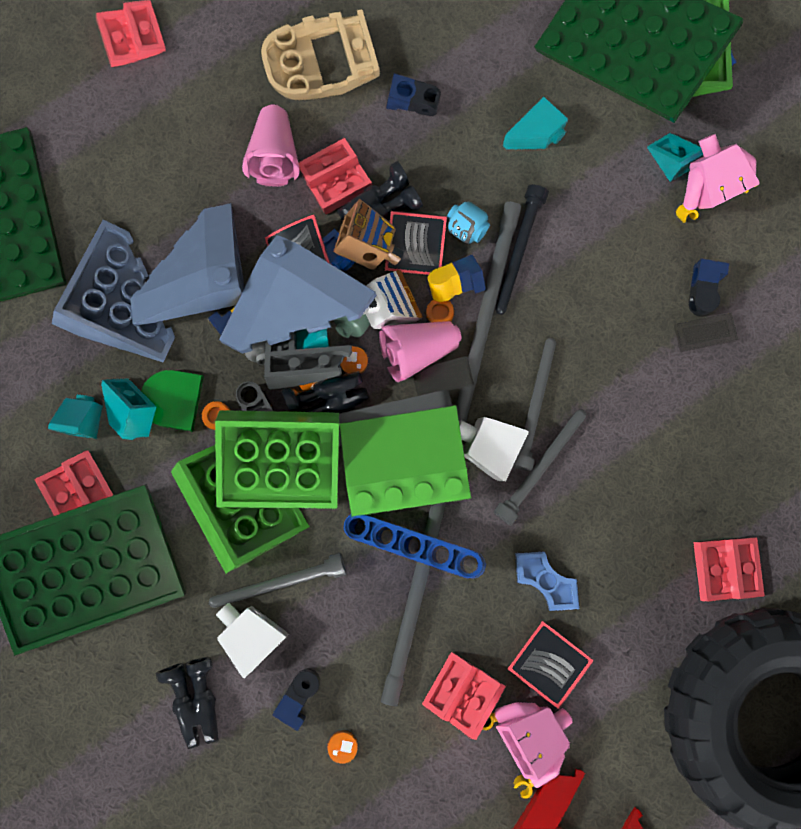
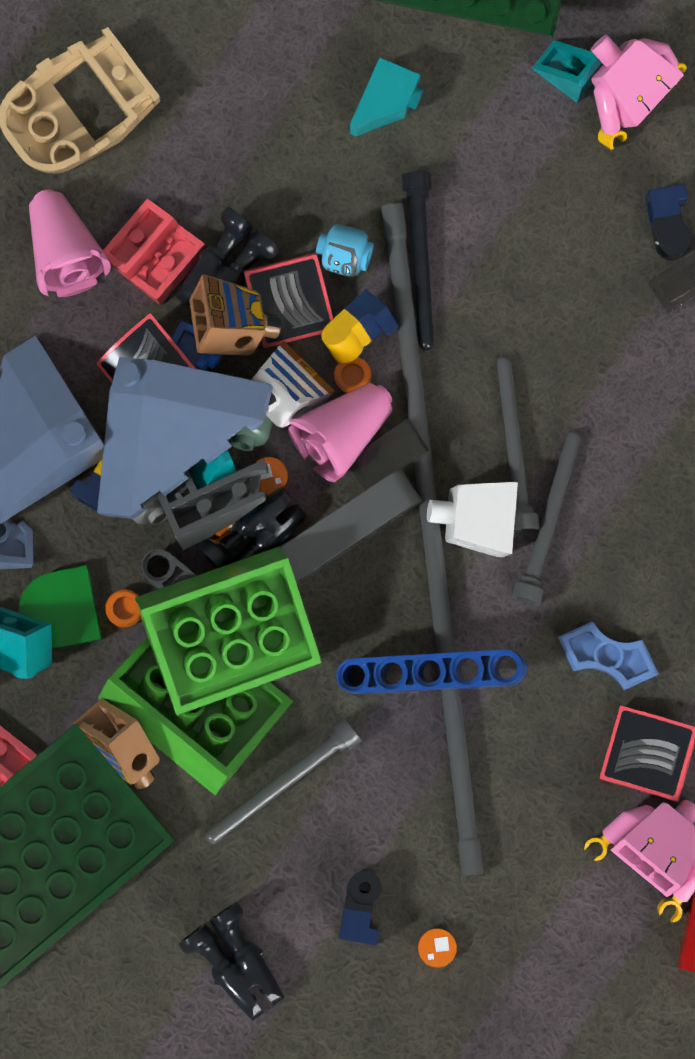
camera: 25 degrees left, 0 degrees up
(173, 516) = (127, 750): none -> medium nougat torso
(248, 637) = (272, 860): white torso -> none
(404, 461) = (381, 574): bright green slope -> none
(413, 96) = (214, 114): leg -> none
(463, 695) = (558, 829): coral slope -> none

